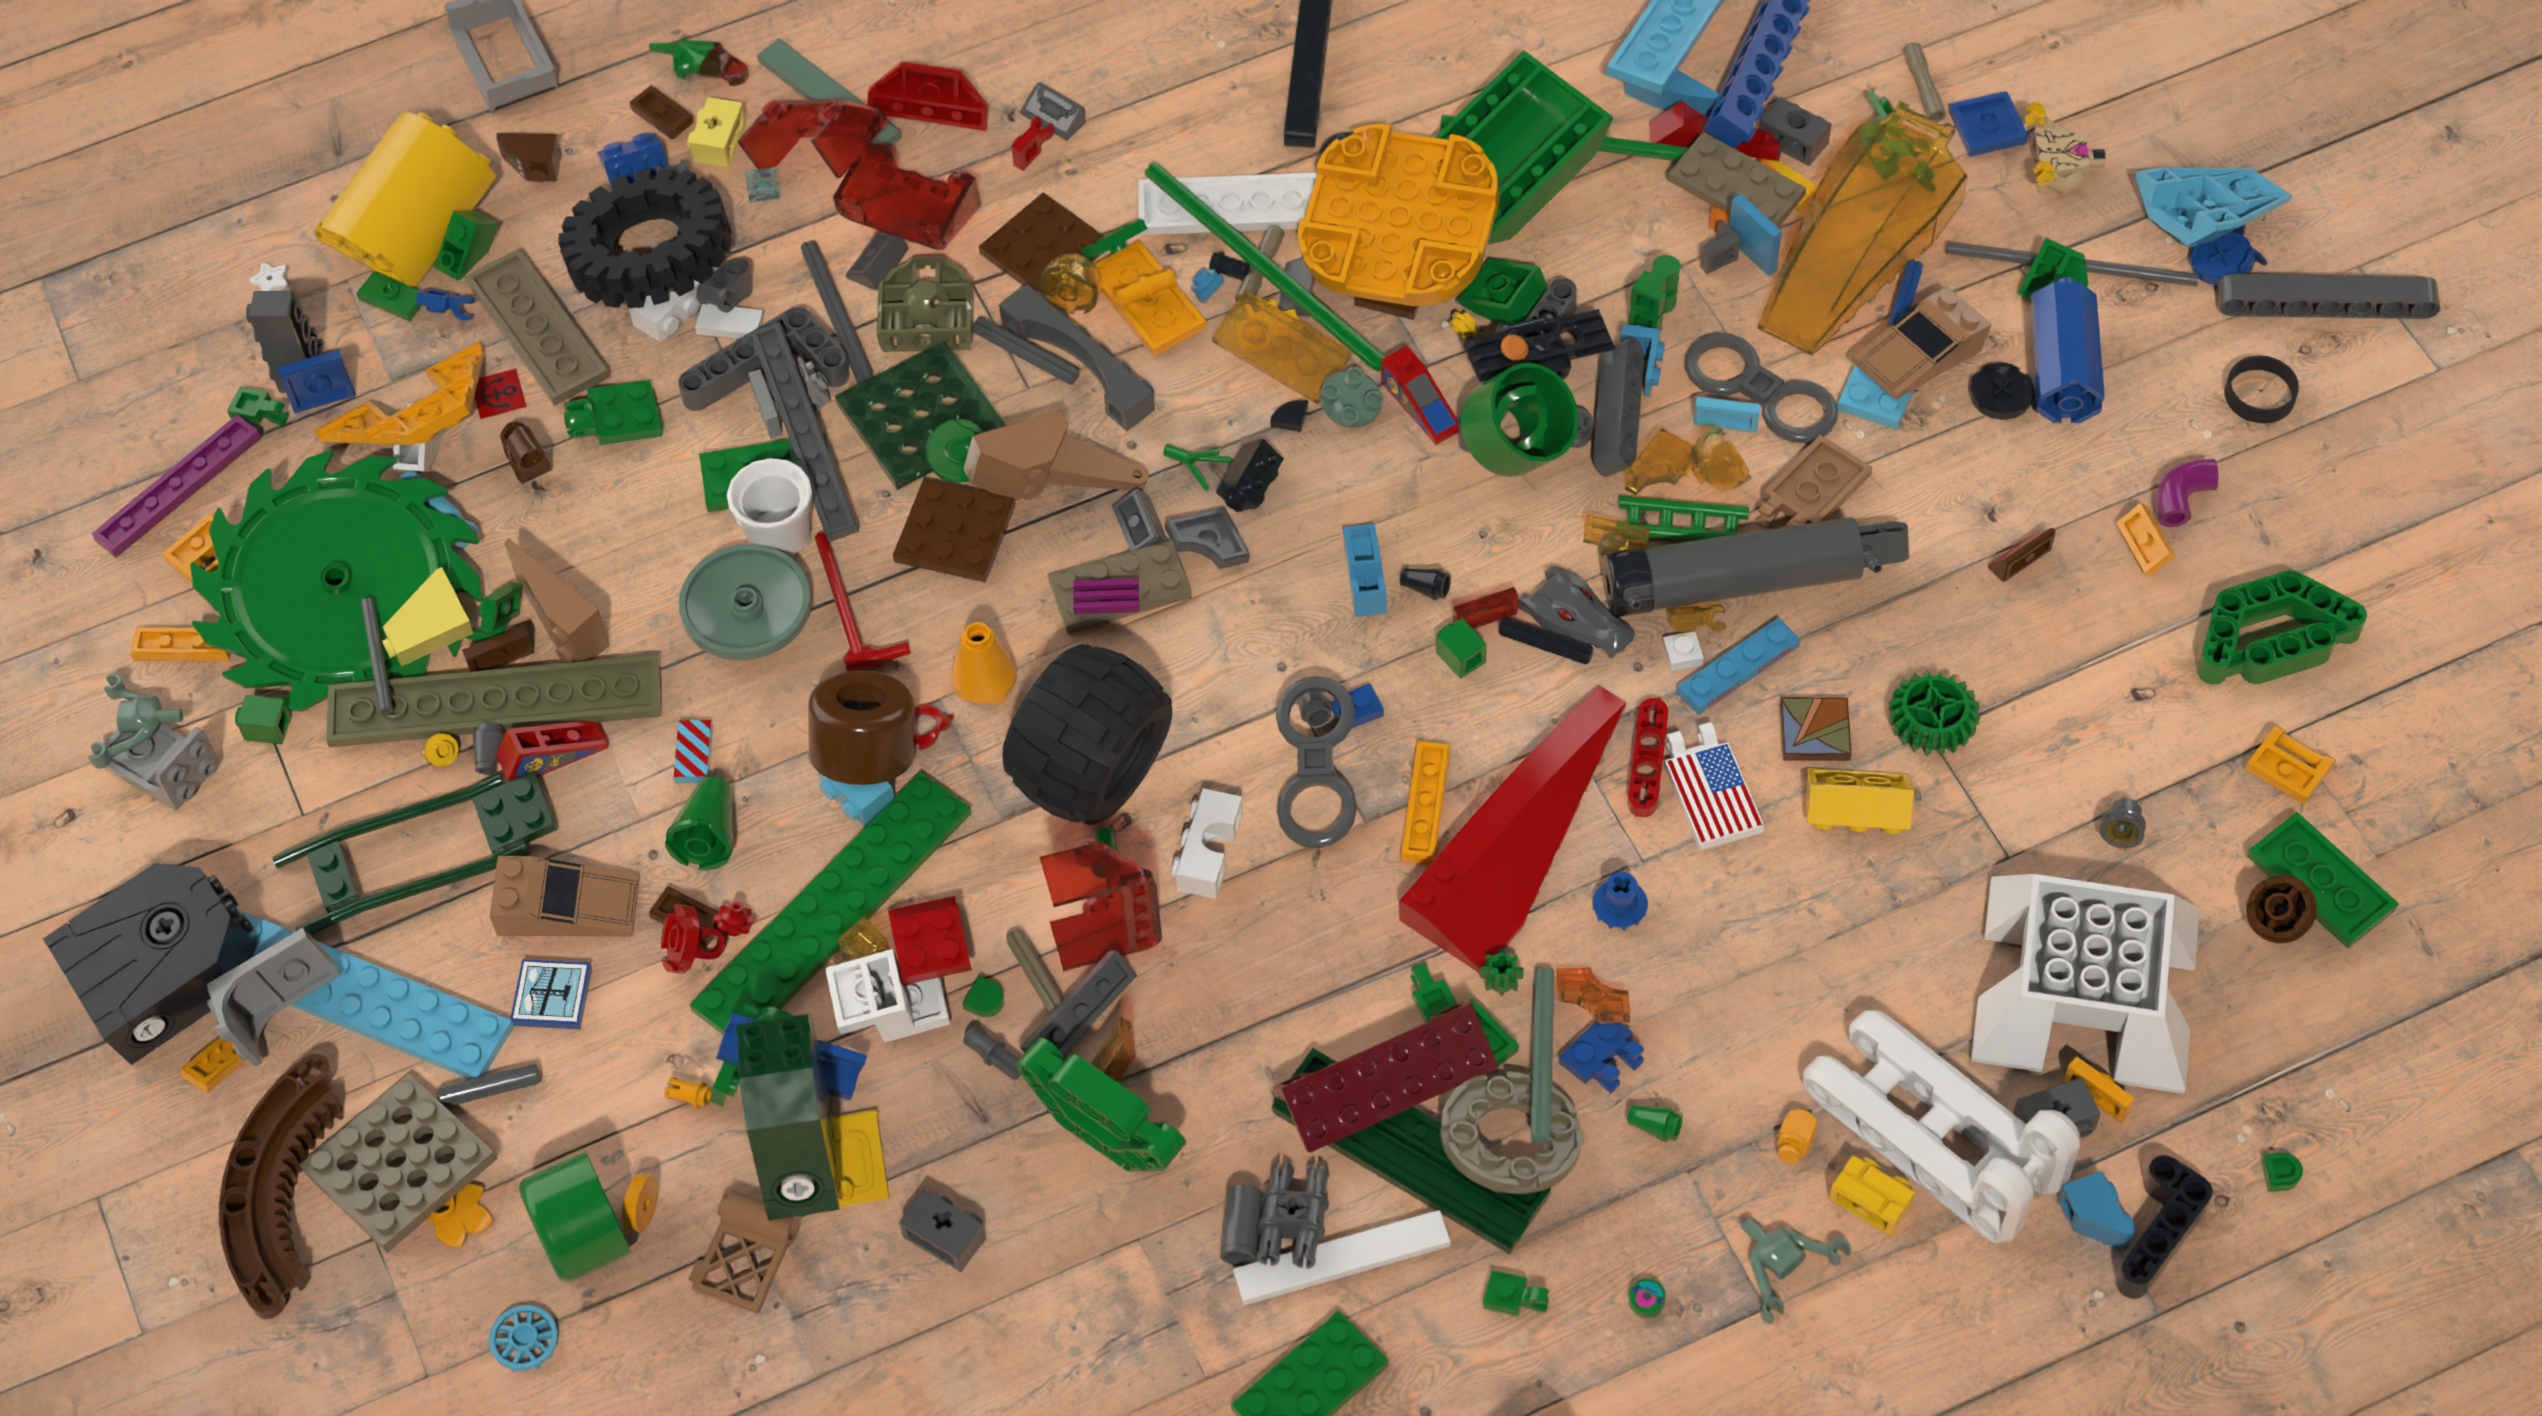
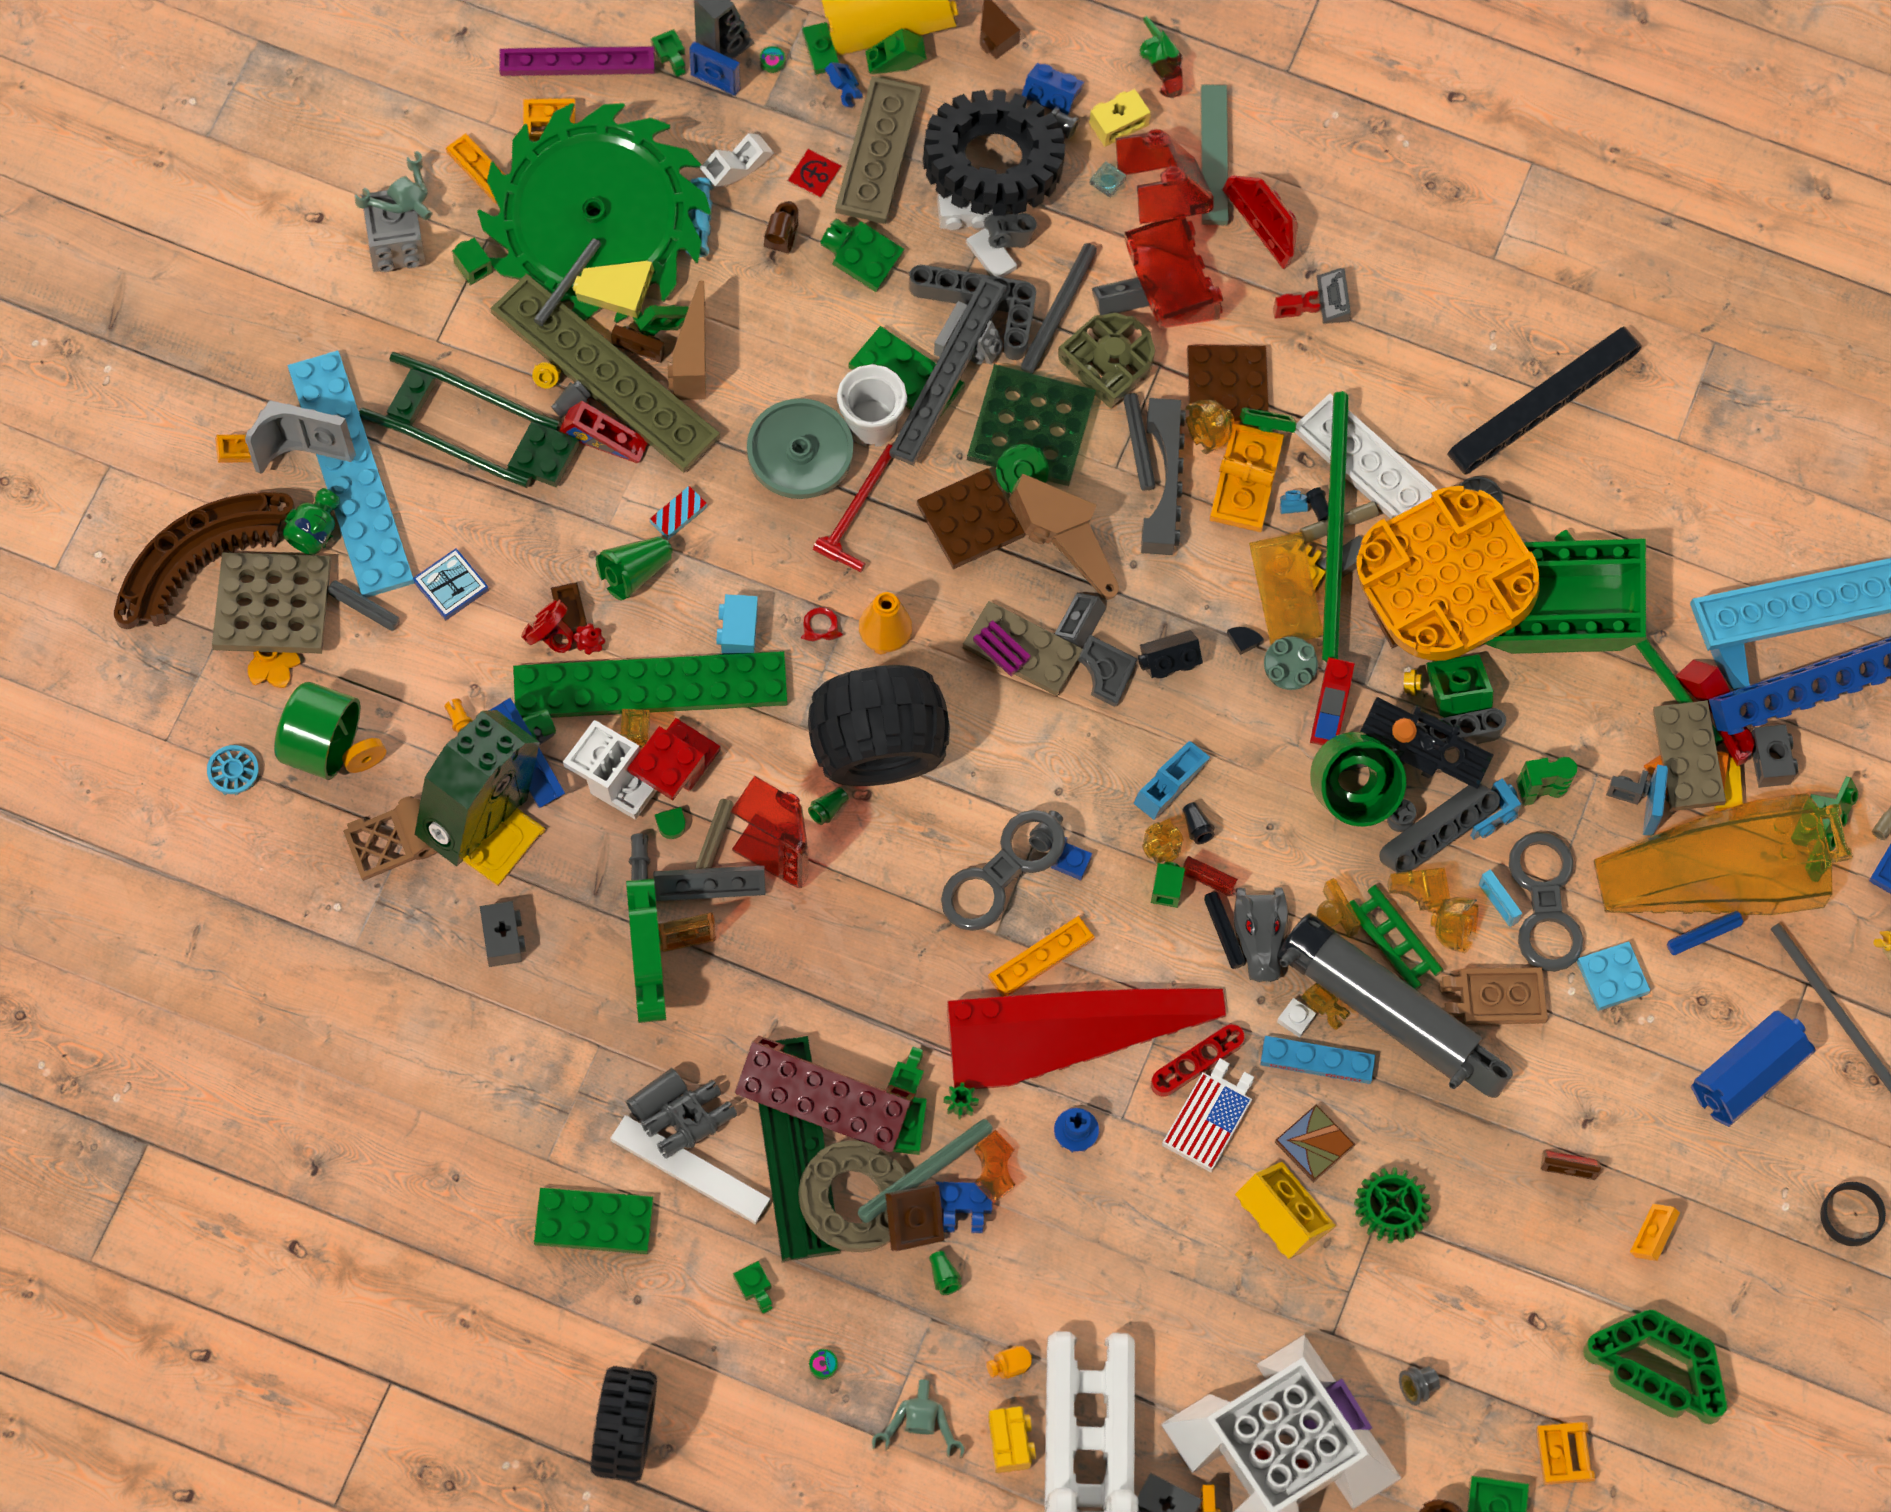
camera: 40 degrees right, 10 degrees up
(149, 953) = (264, 351): black piece -> none
(357, 339) = (772, 59): none -> tile
(361, 1059) = (311, 524): none -> green piece
(419, 422) = (747, 154): light orange wing -> none
(562, 899) = (514, 533): medium nougat slope -> none
(661, 112) = (1102, 71): reddish brown plate -> none
(861, 727) = (771, 594): reddish brown piece -> none
(1190, 457) = (1153, 607): green plant -> none
(1214, 818) = (908, 844): white arch -> none
(1418, 617) = (1164, 834): none -> clear yellow brick
(1582, 1096) = (914, 1217): none -> reddish brown plate
(1924, 343) = (1671, 974): medium nougat slope -> none
(2001, 391) = (1690, 1051): black tile -> none
(2051, 264) = (1818, 1012): green slope -> none
(2179, 484) = (1717, 1220): magenta cylinder -> none

